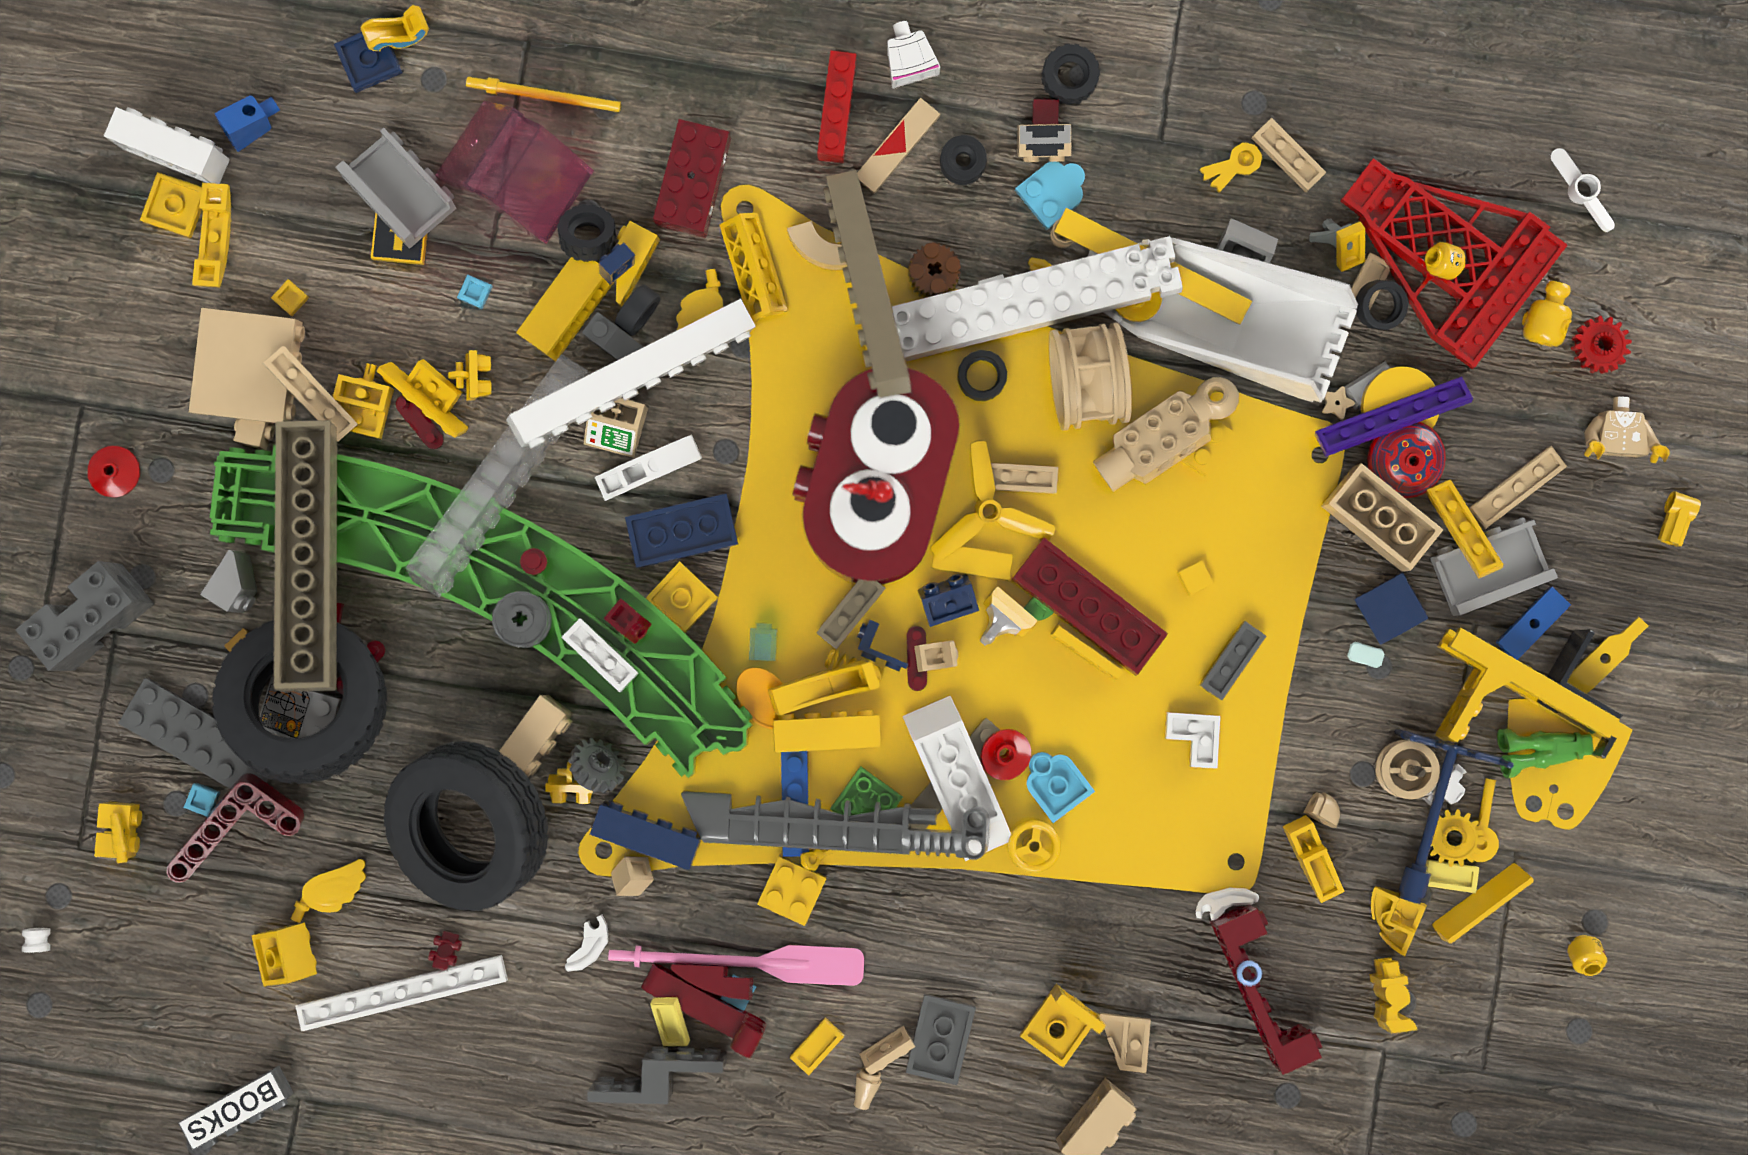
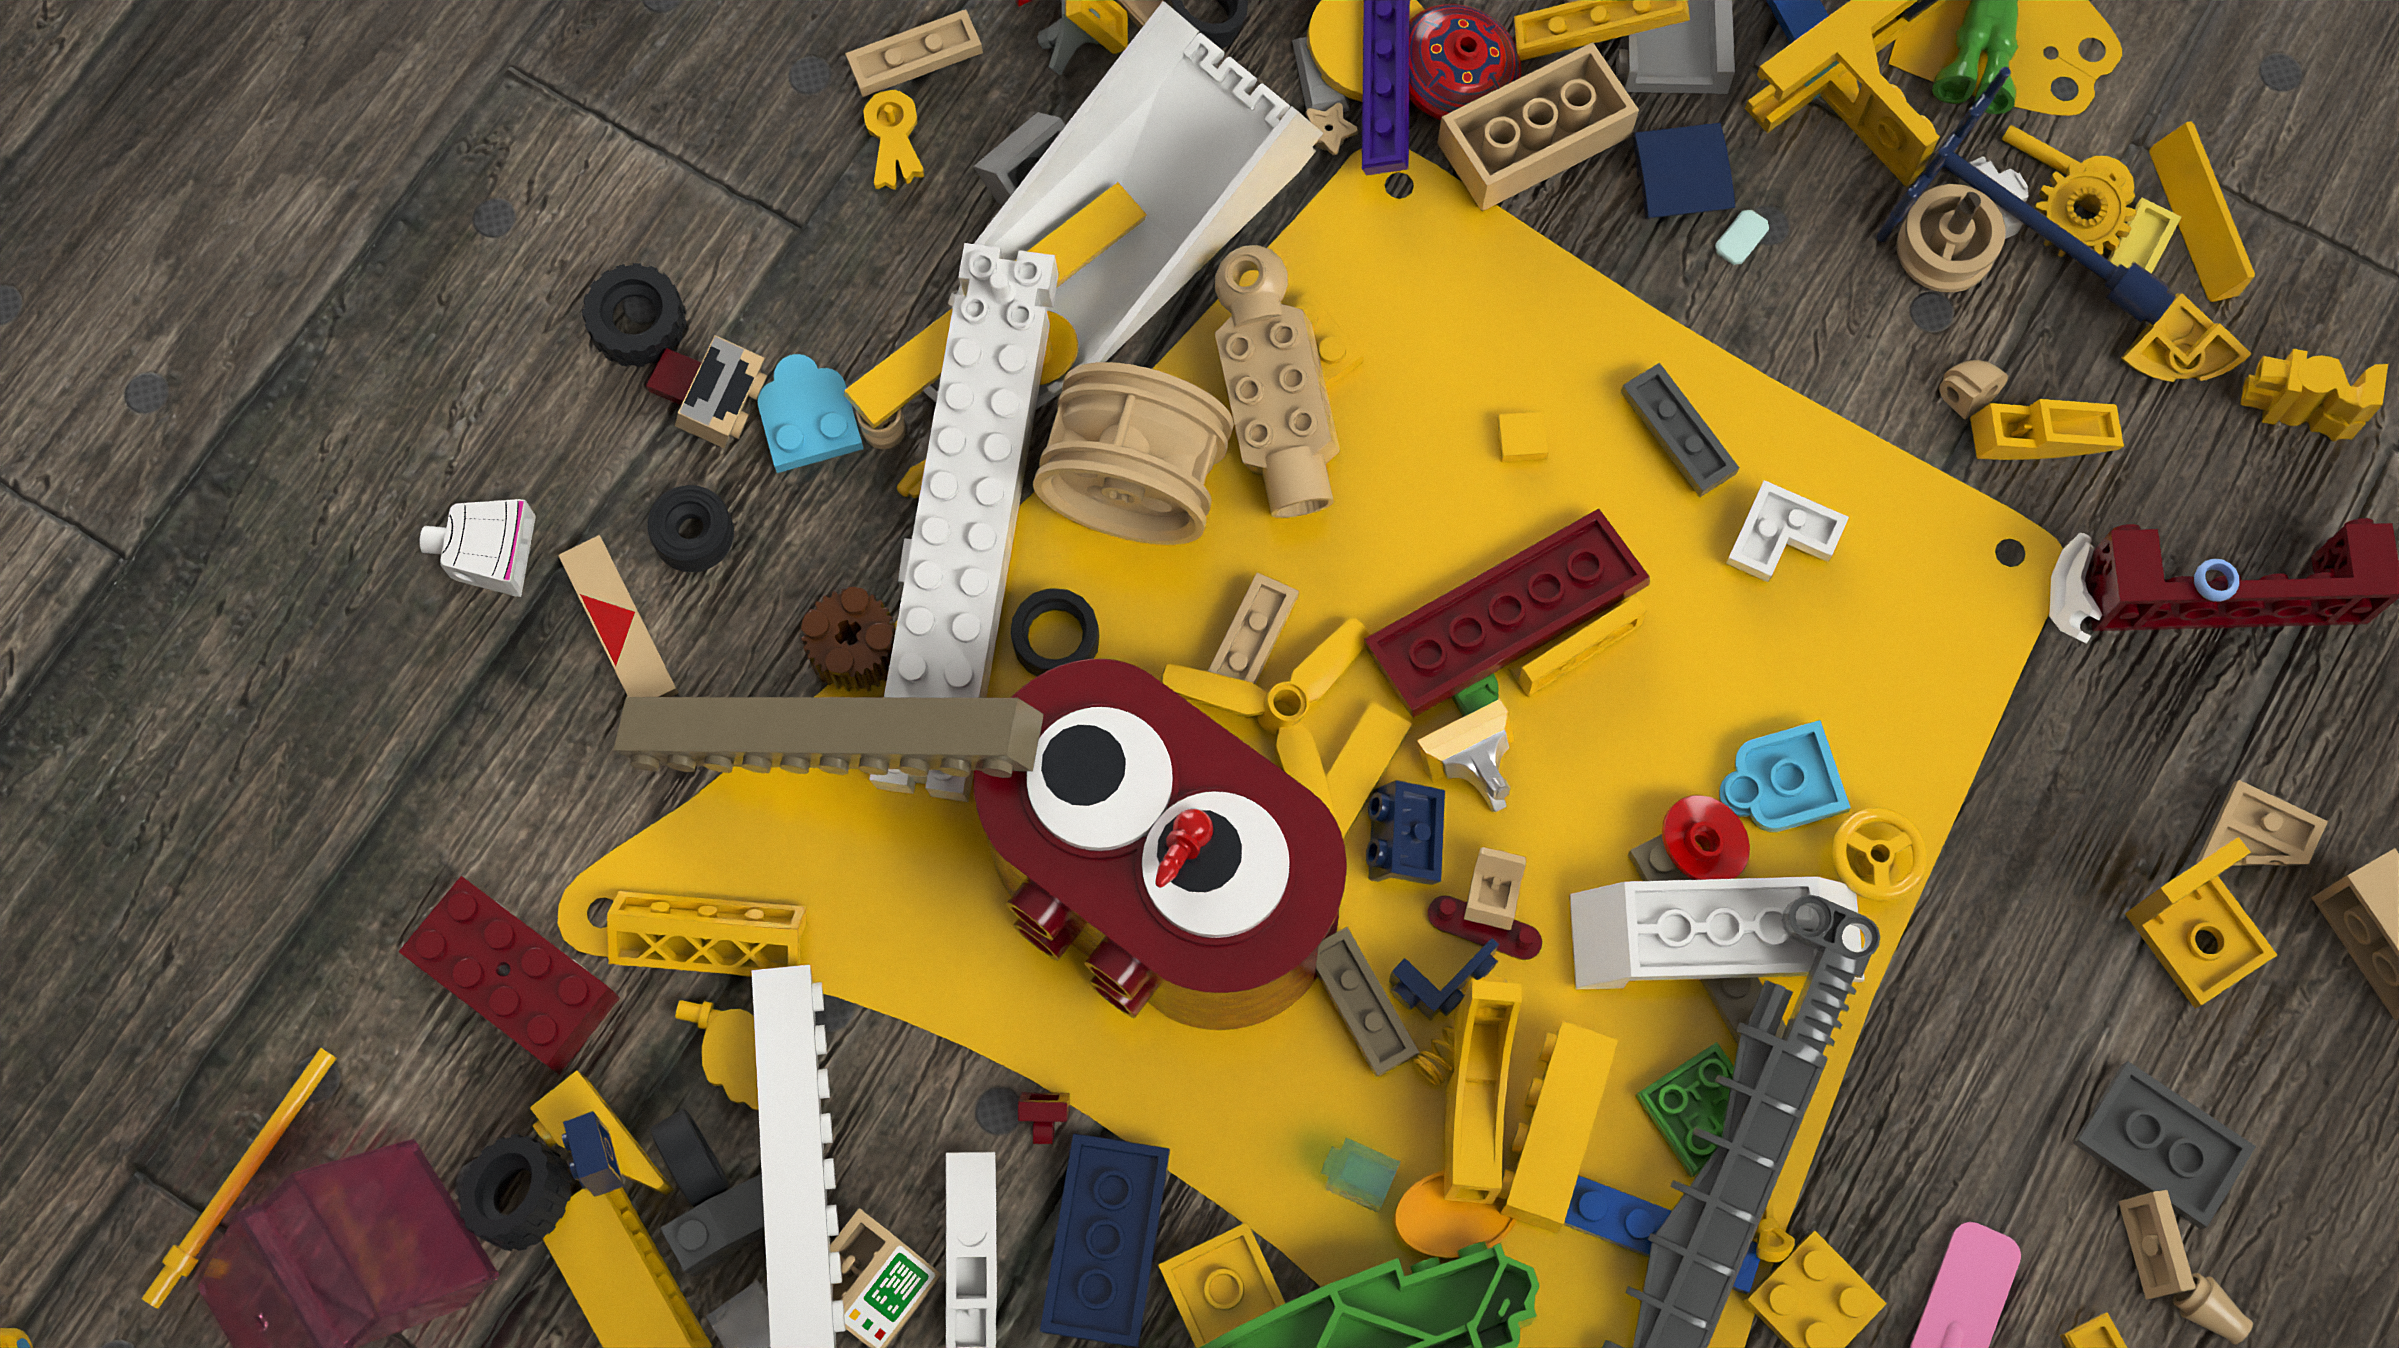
camera: 65 degrees left, 15 degrees down
(732, 474) = (1044, 1111): none -> dark red tile
(815, 248) = (727, 816): tan arch -> none
(837, 107) = (508, 689): red brick -> none
(1587, 955) = (2334, 93): yellow head -> none

